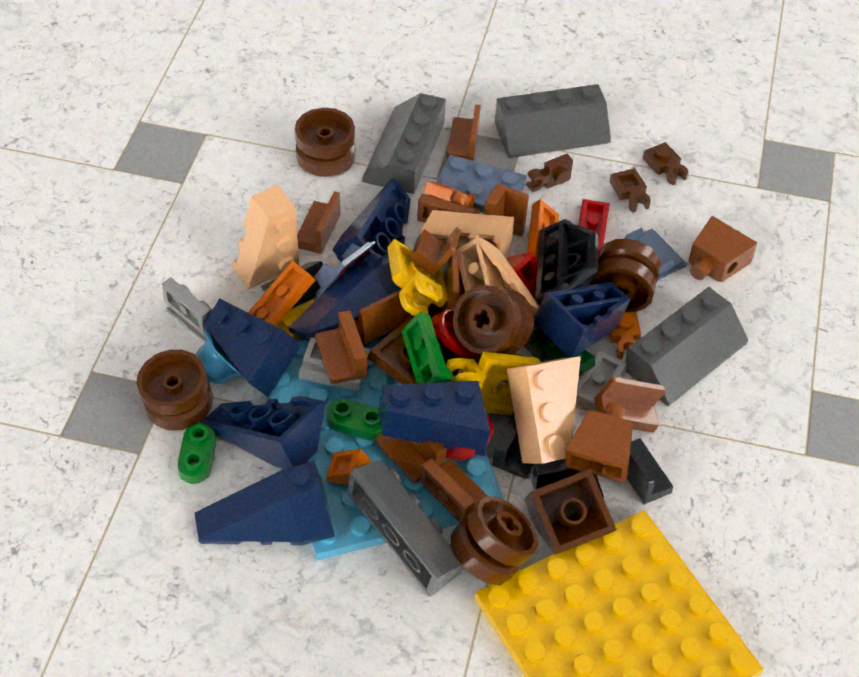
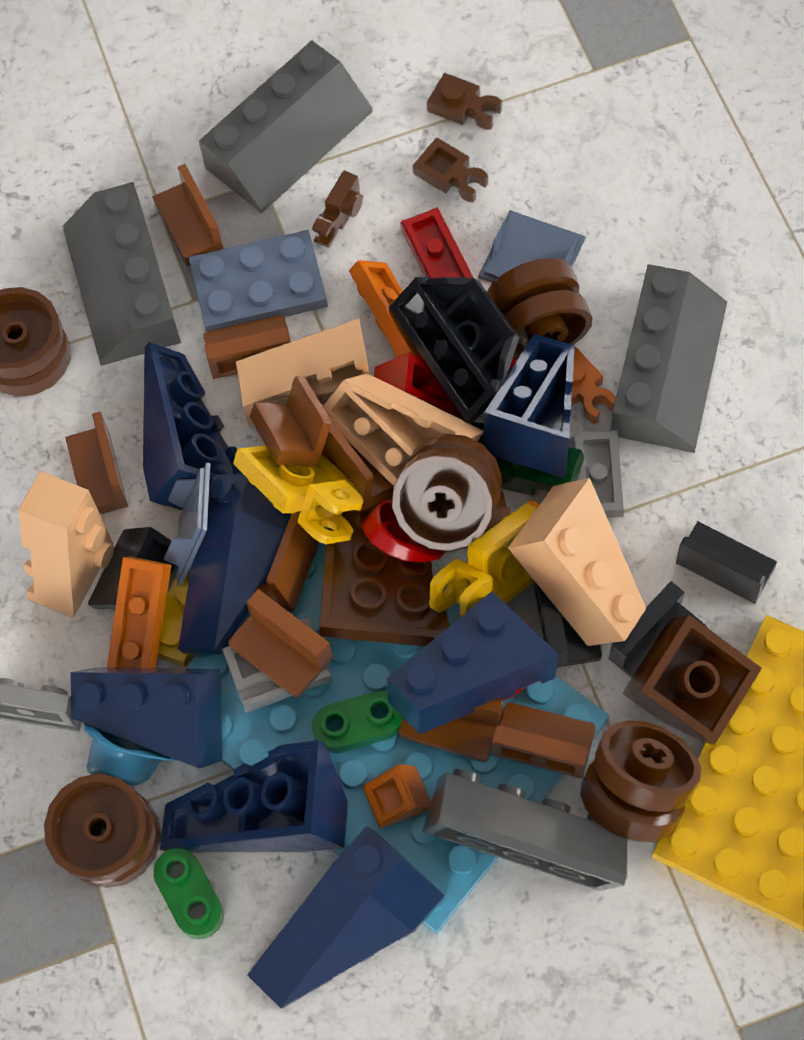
camera: 25 degrees left, 15 degrees up
(425, 351) = (394, 590): green plate -> none
(449, 194) = (235, 322): orange plate -> none
(510, 203) = (330, 301): dark orange panel -> none
(602, 444) = (682, 569): dark orange torso -> none
(636, 398) = (660, 490): dark orange panel -> none
(720, 251) = (616, 198): dark orange torso -> none

